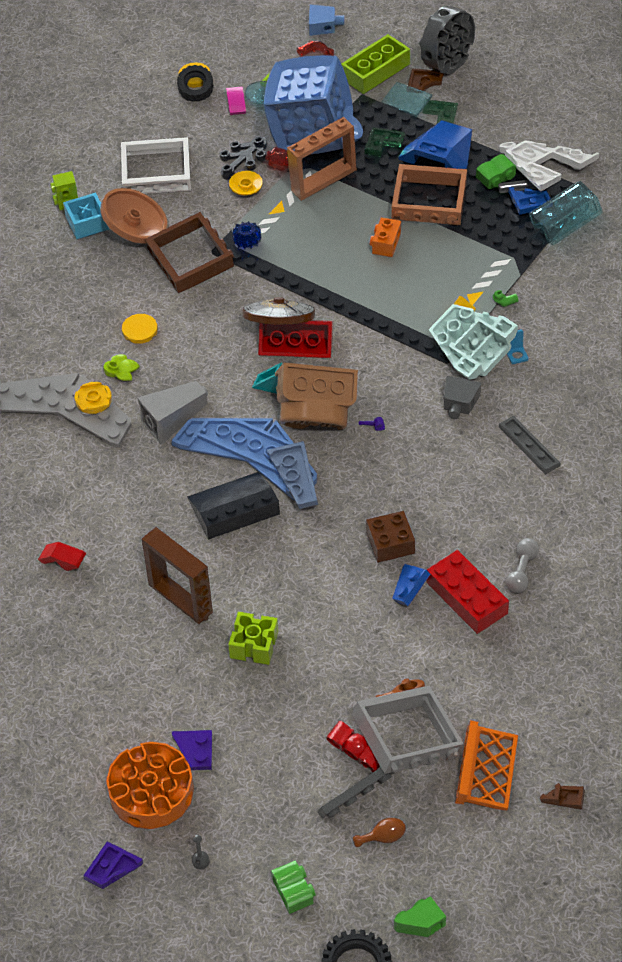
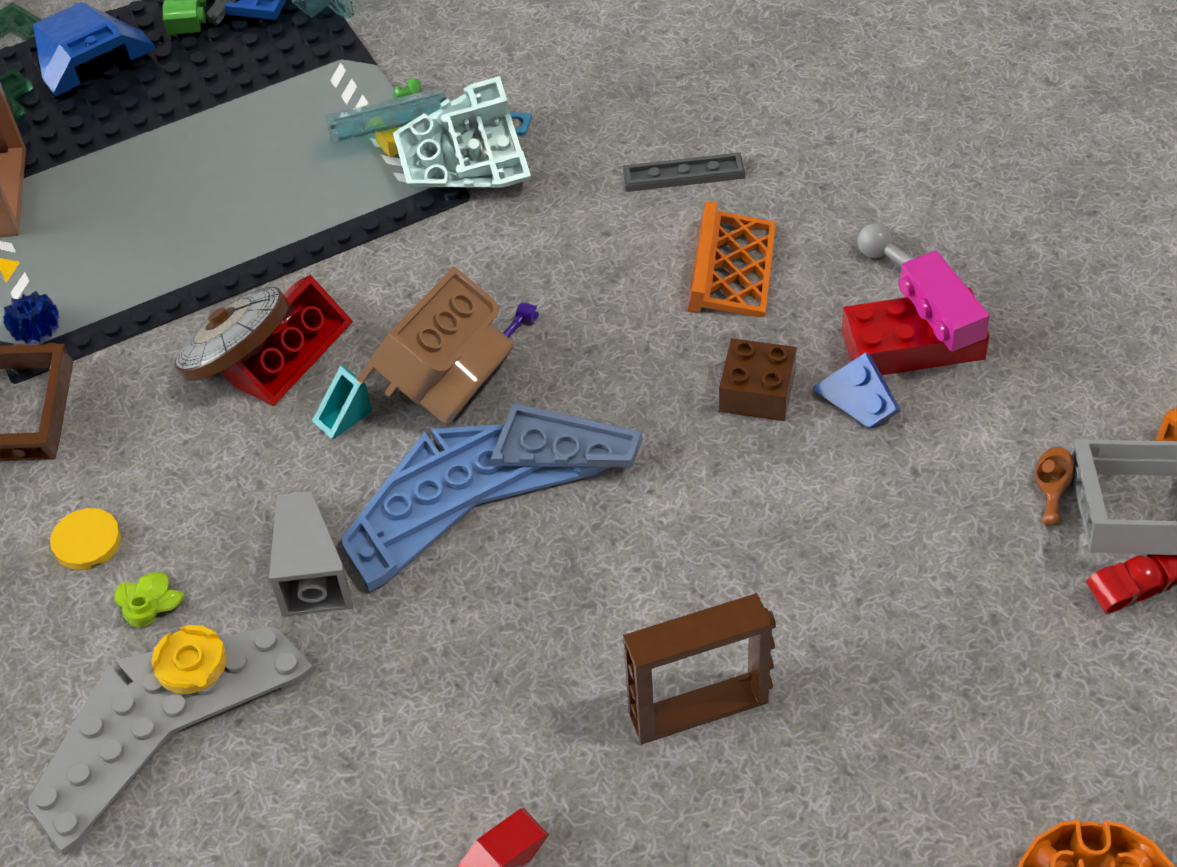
camera: 60 degrees left, 0 degrees up
(195, 747) = (1029, 807): dark purple wing -> none
(234, 505) = (555, 552): black slope -> none
(253, 638) = (858, 628): lime brick -> none
(386, 237) = (189, 163): orange brick -> none
(429, 175) = (134, 63): nougat window -> none
(460, 396) = (547, 204): dark grey torso -> none
(464, 480) = (705, 262): none -> orange fence
(468, 294) = (382, 115): none -> clear light blue slope
(478, 586) = (943, 301): none -> dark pink brick

